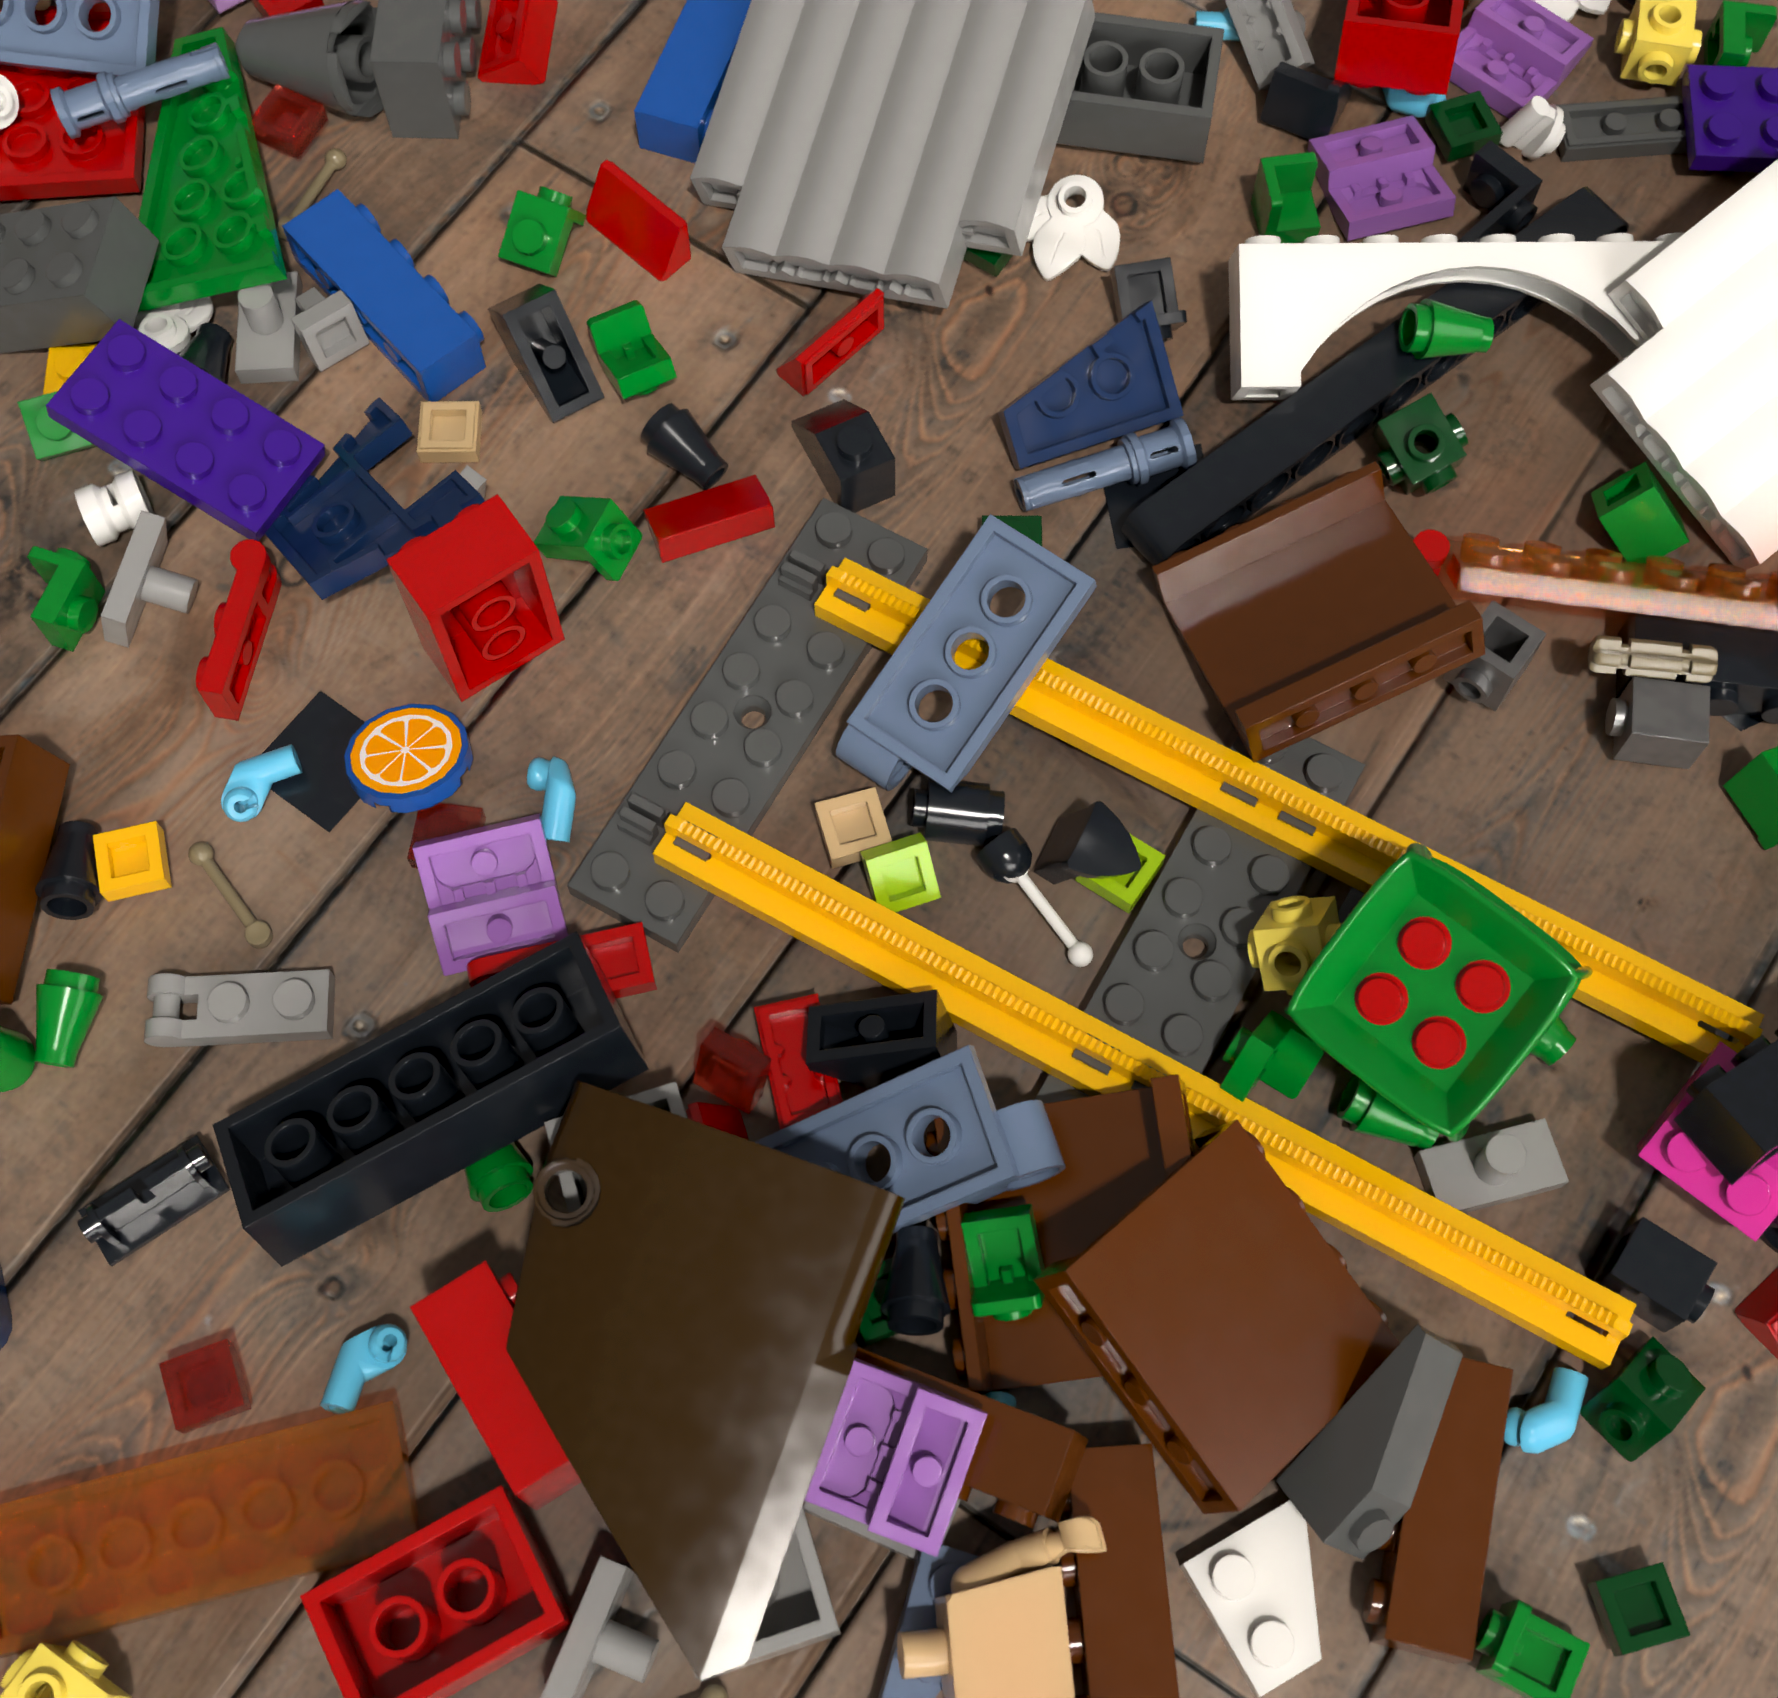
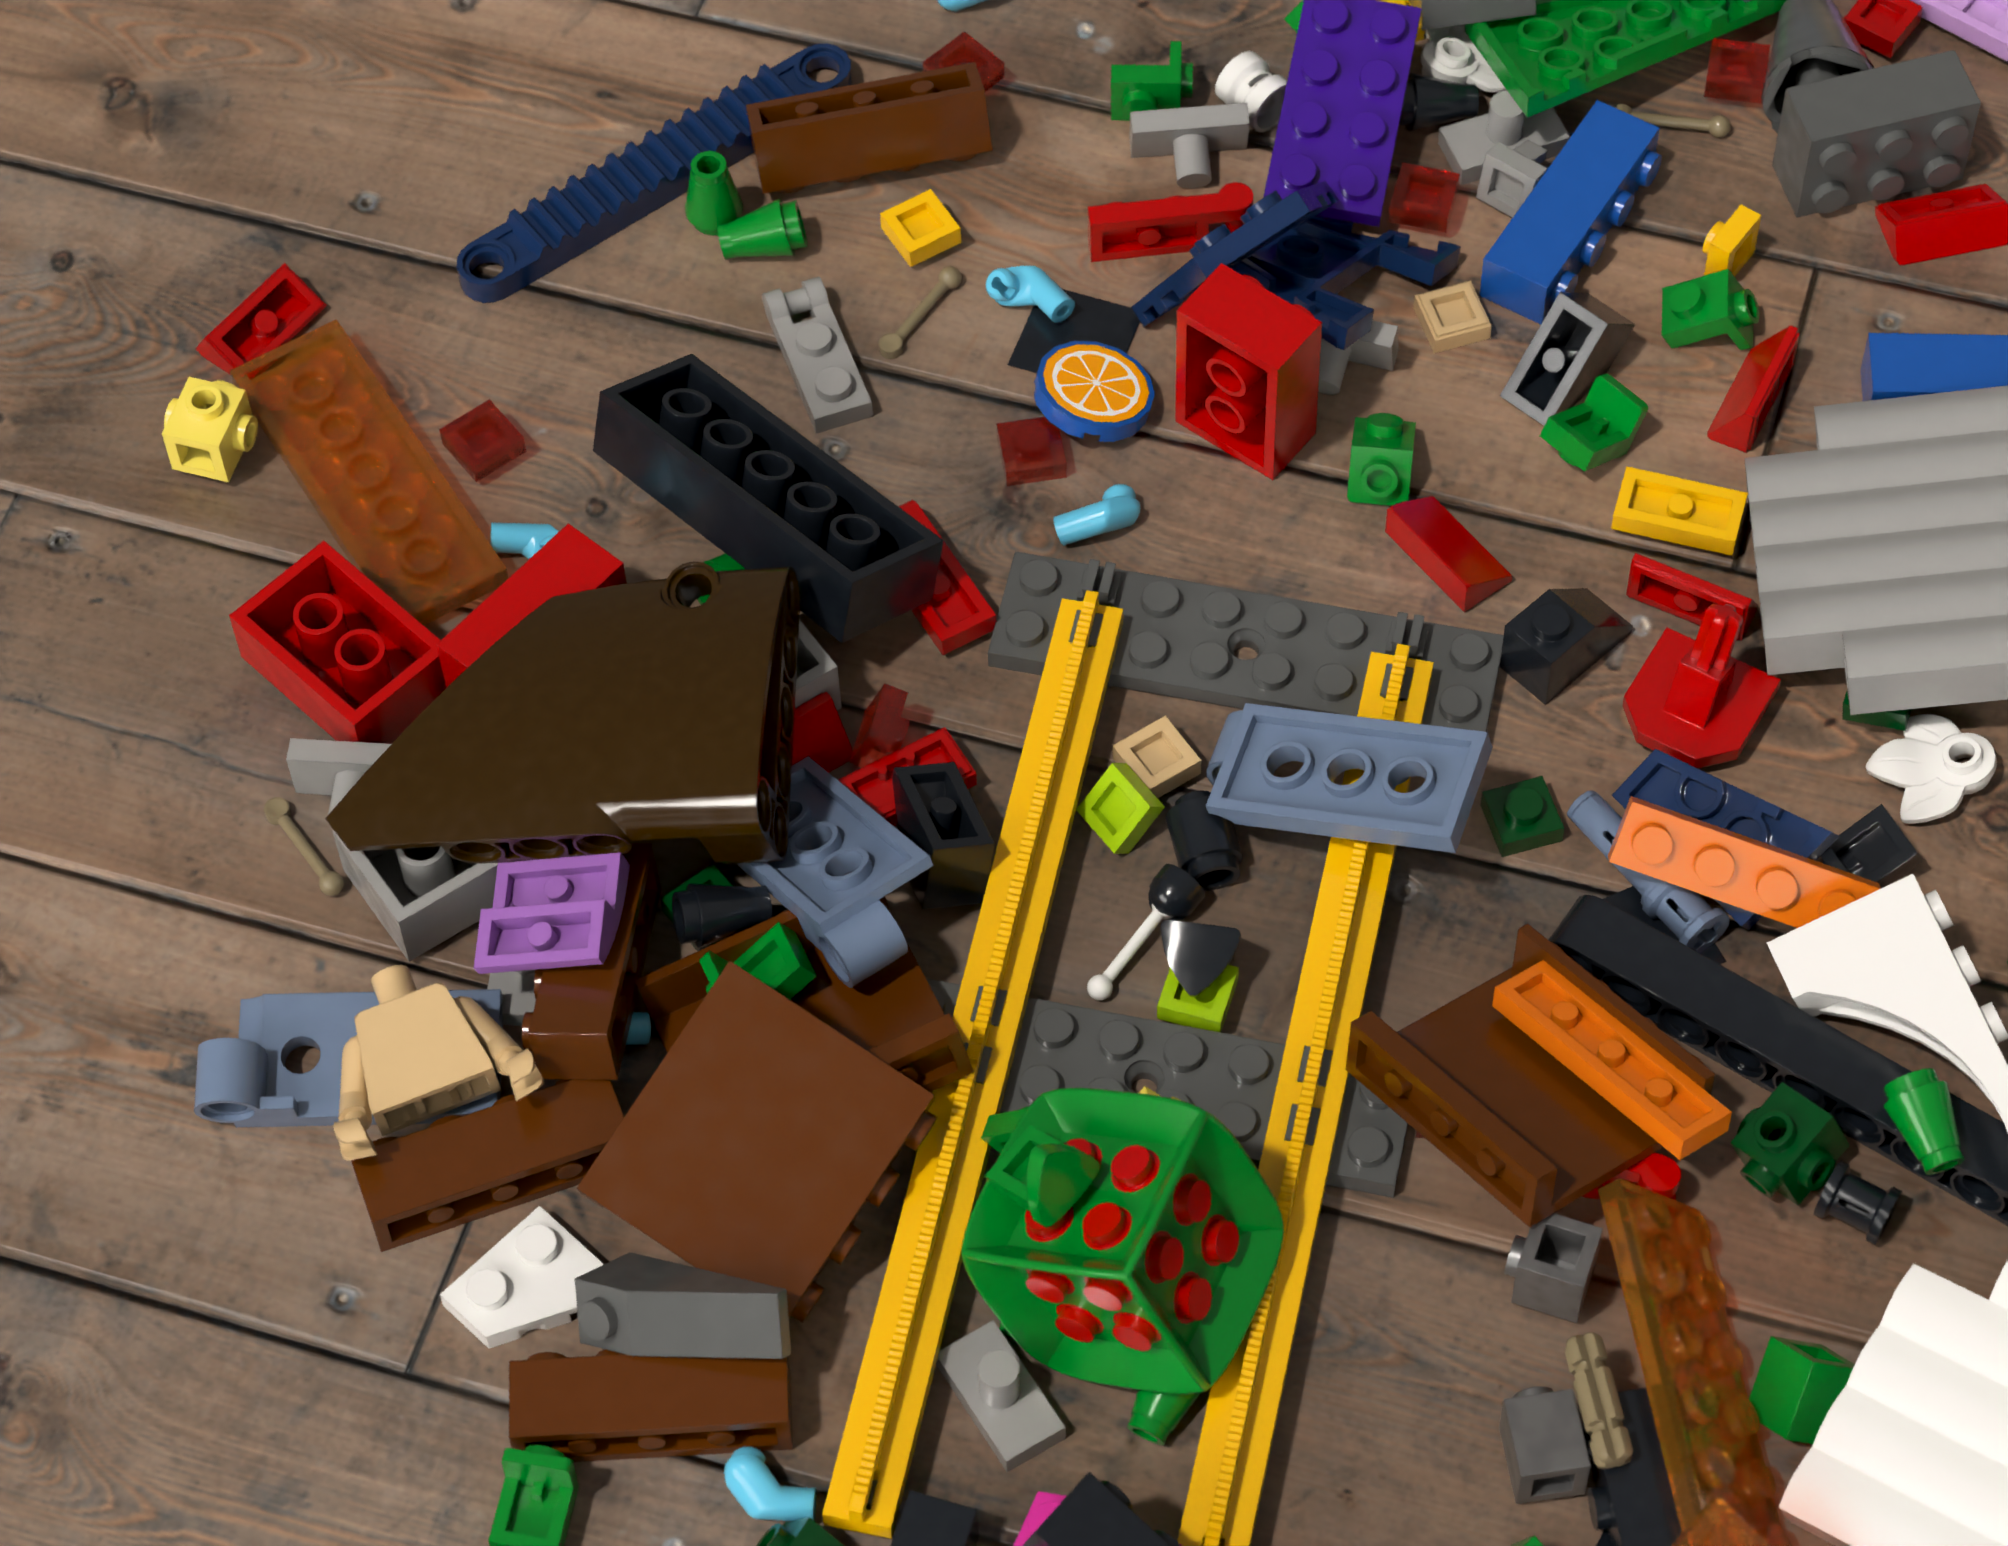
camera: 75 degrees right, 10 degrees down
(70, 878) = (888, 186): black cone -> none
(152, 1201) = (616, 343): black hinge -> none
(312, 405) = (1424, 197): none -> clear red plate
(350, 568) = (1262, 225): none -> dark blue wing
(480, 188) = (1733, 242): none -> yellow plate
(490, 891) = (987, 495): medium lavender slope -> none
(682, 444) = (1513, 500): black cone -> none
(743, 321) = (1679, 510): none -> yellow plate
(948, 370) = (1696, 696): none -> red piece
(1157, 385) = (1731, 866): none -> orange plate
(1318, 542) = (1612, 1059): none -> orange plate
(1409, 1029) = (1042, 1175): none -> green tile
(1478, 416) = (1857, 1202): none -> black bush

